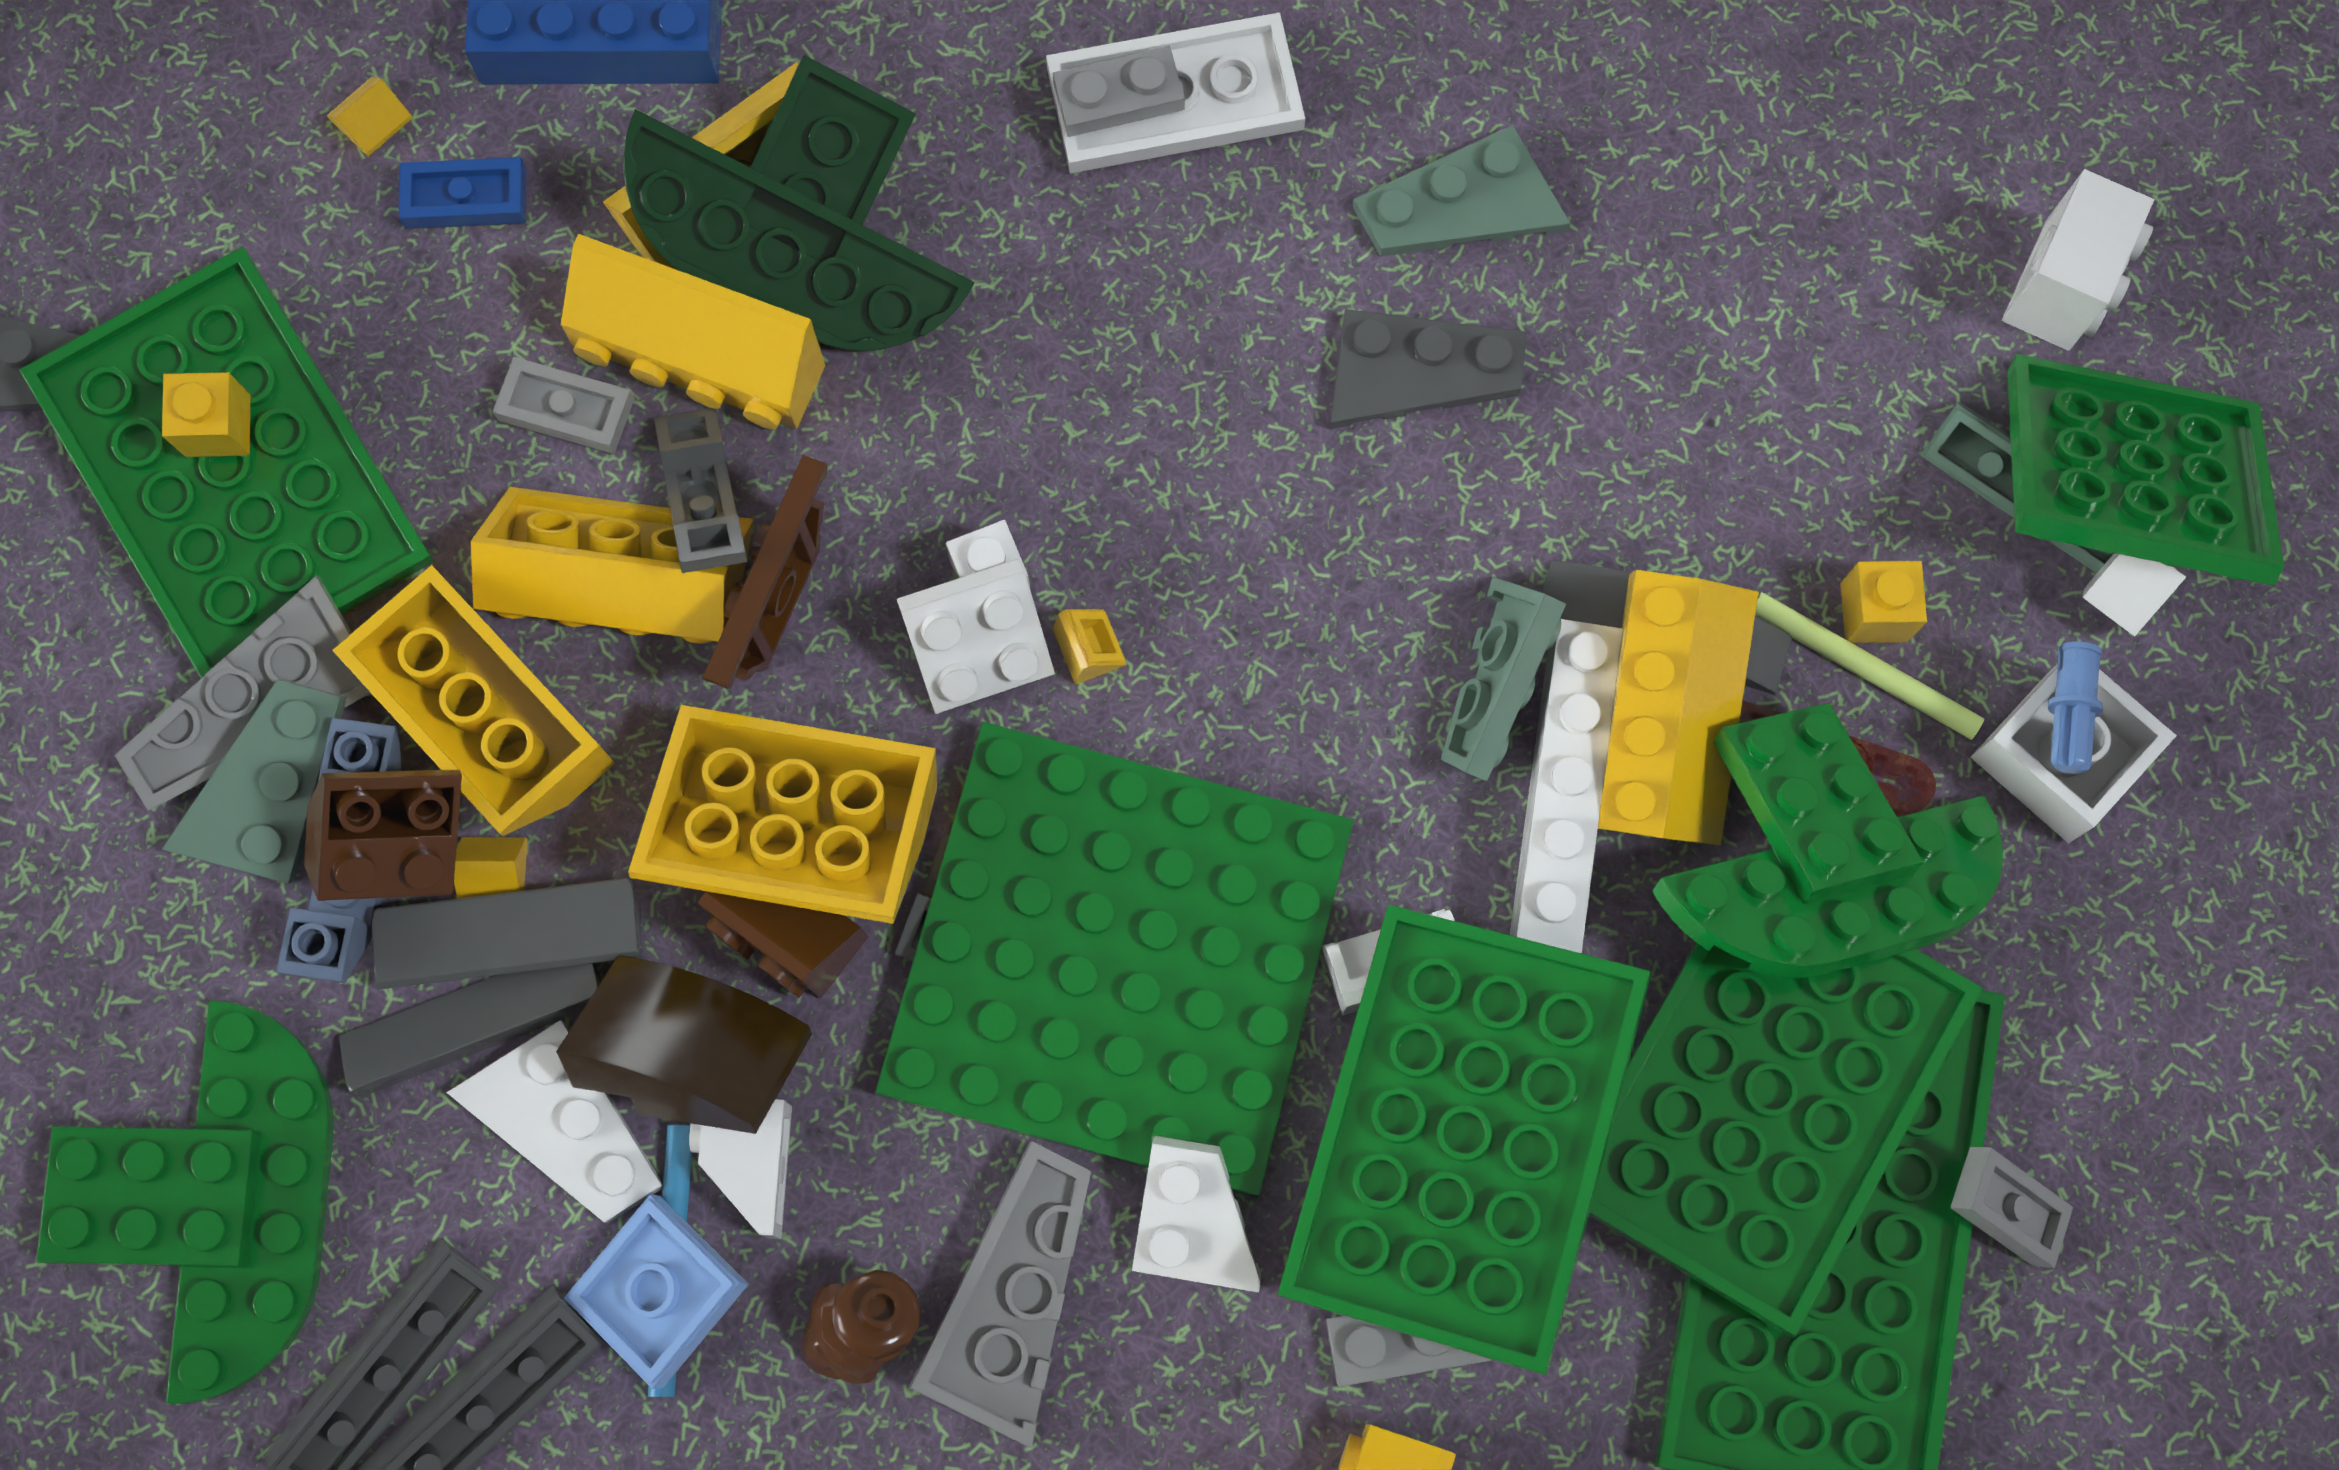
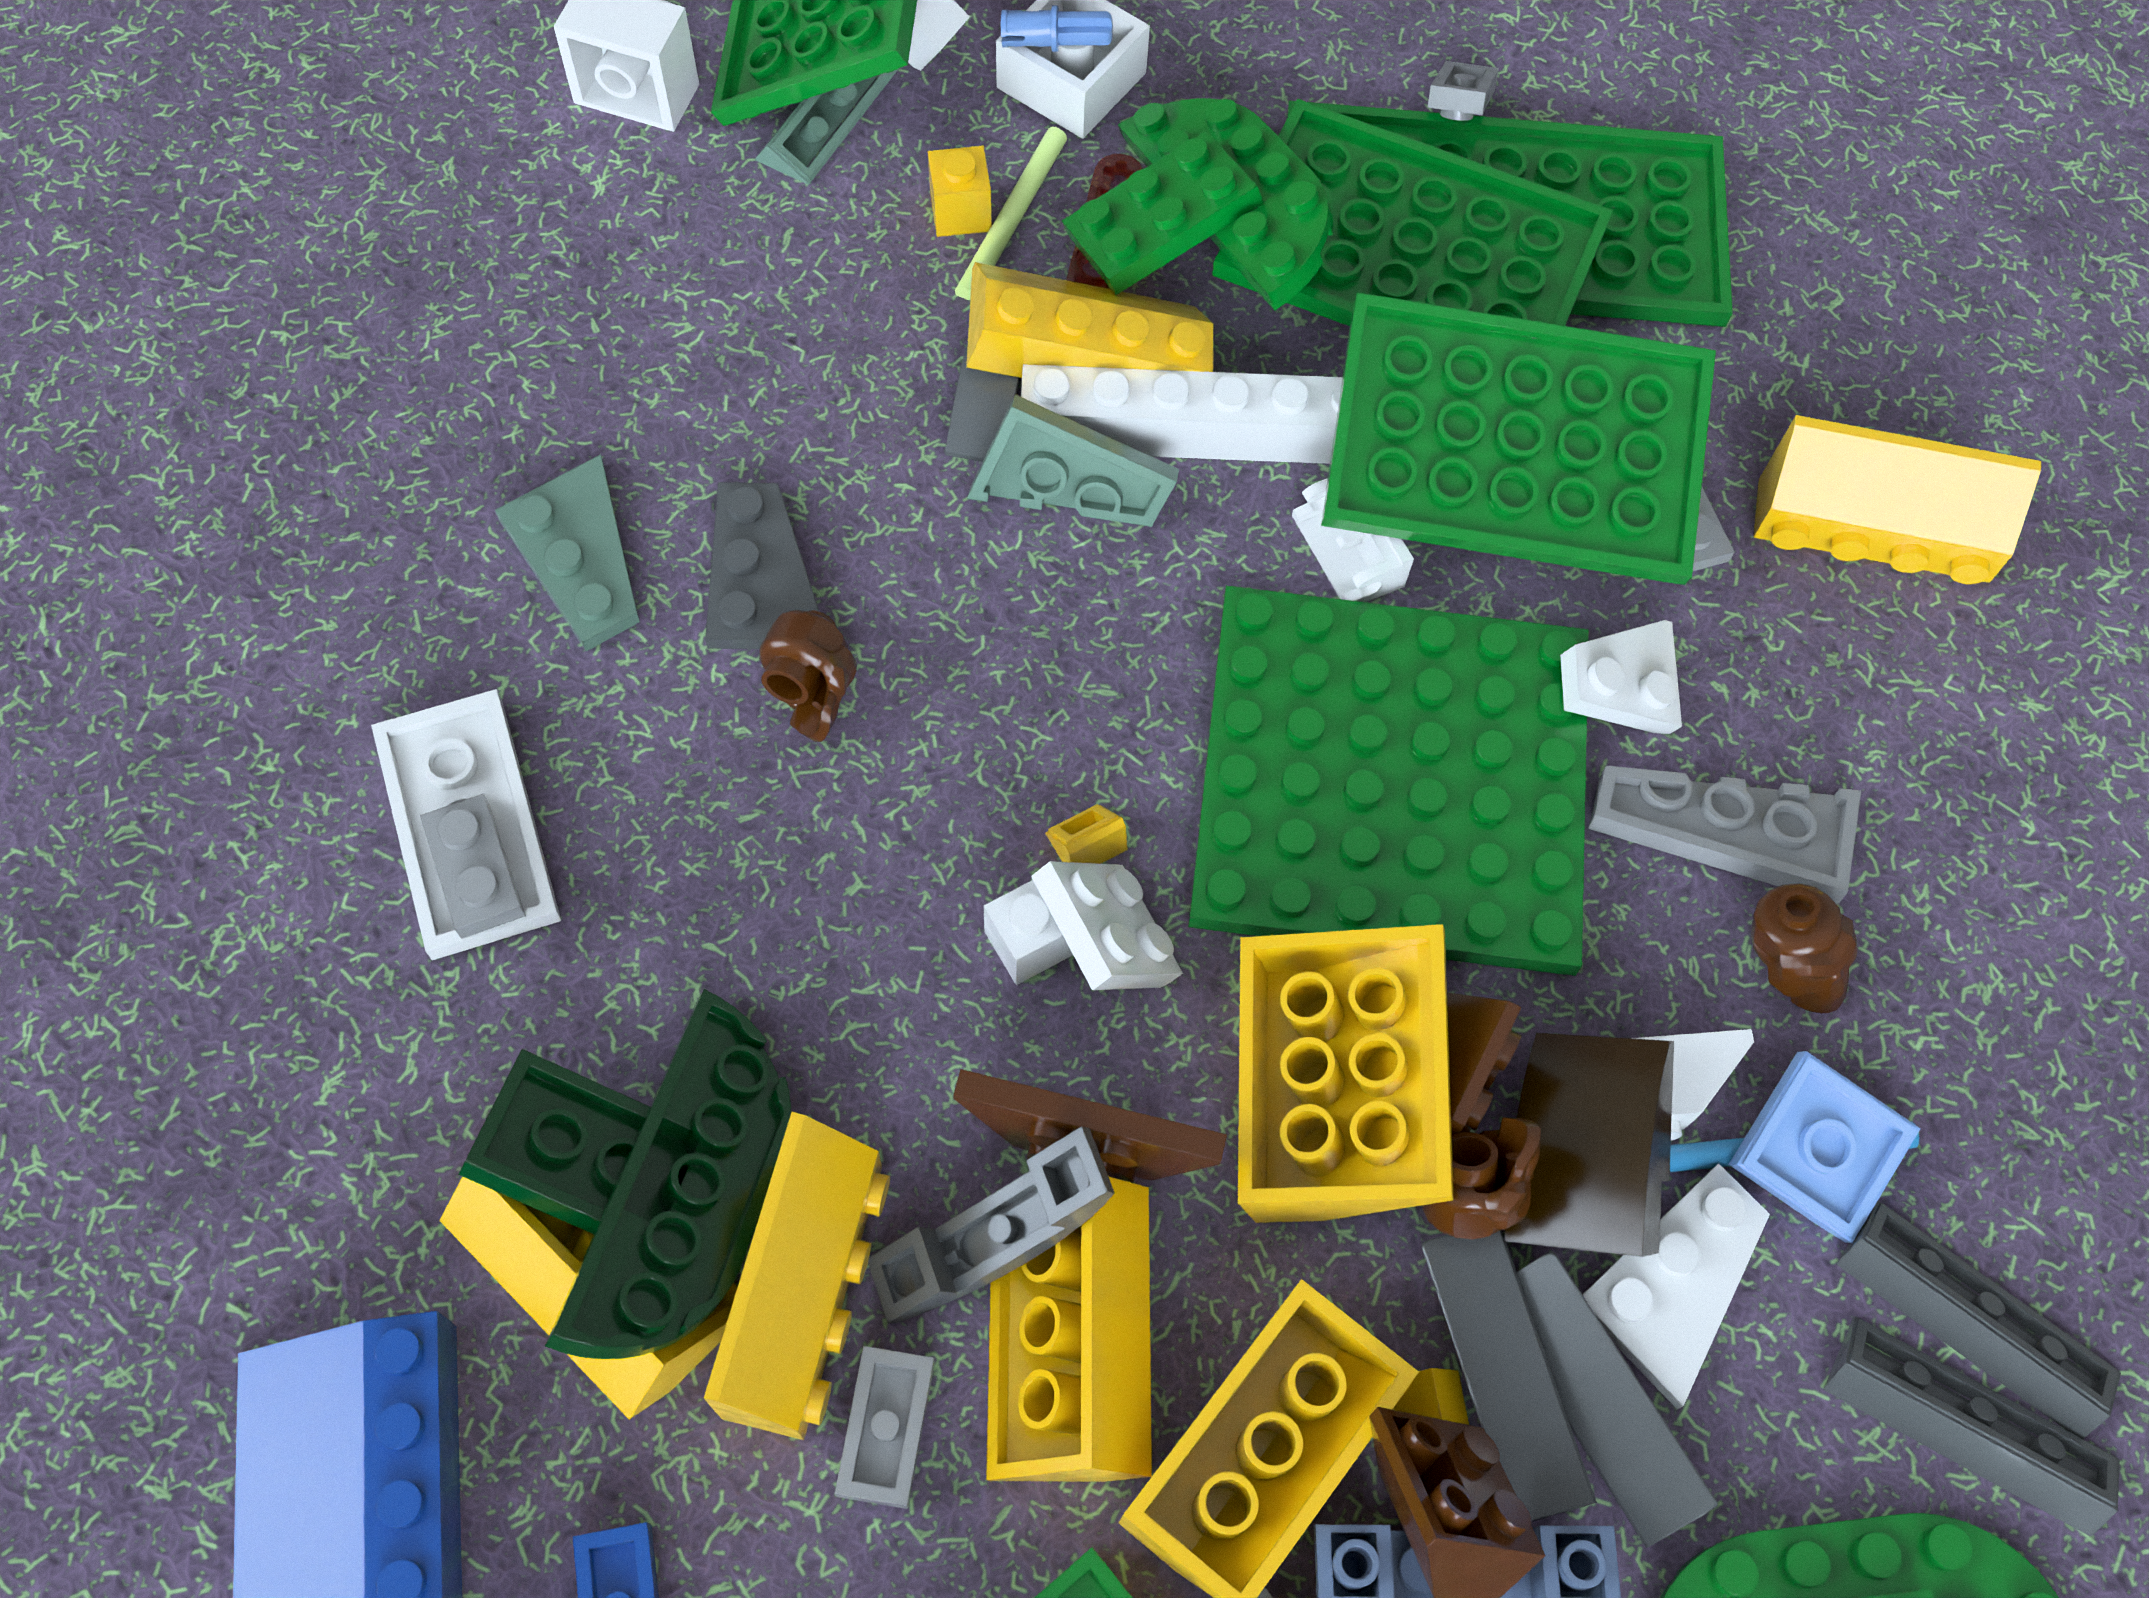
camera: 100 degrees left, 10 degrees down
(659, 927) = (1489, 1180): none -> reddish brown head
(1291, 393) = (807, 669): none -> reddish brown head

